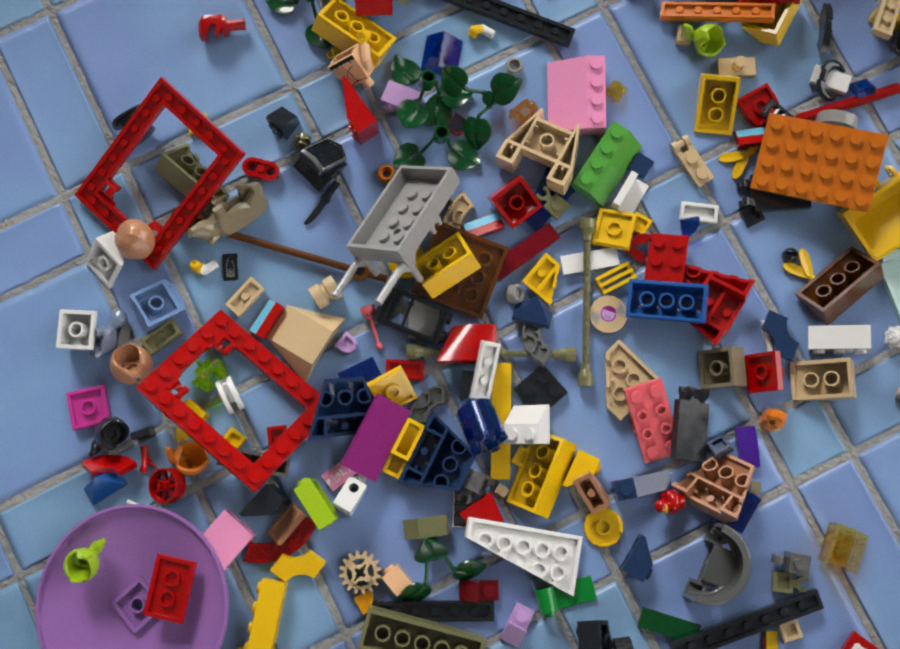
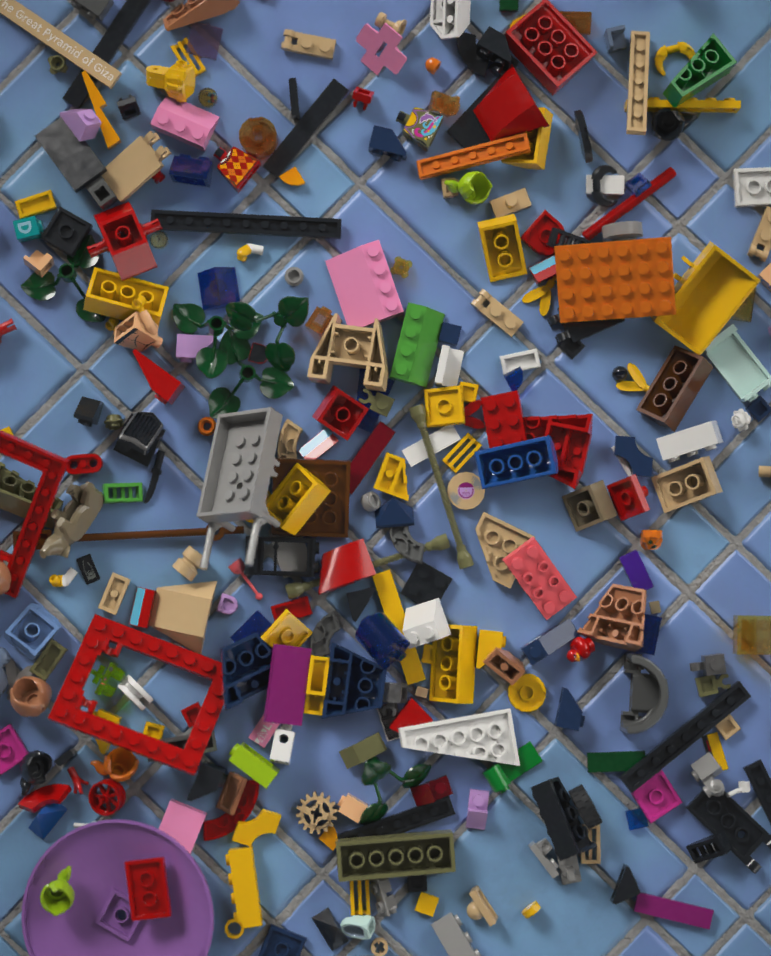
camera: 25 degrees left, 5 degrees up
(278, 212) = (105, 490): none -> bright green slope
(485, 370) = (367, 586): white tile -> none
(690, 424) = (576, 570): black tile -> none
(719, 446) = (610, 580): dark blue tile -> none

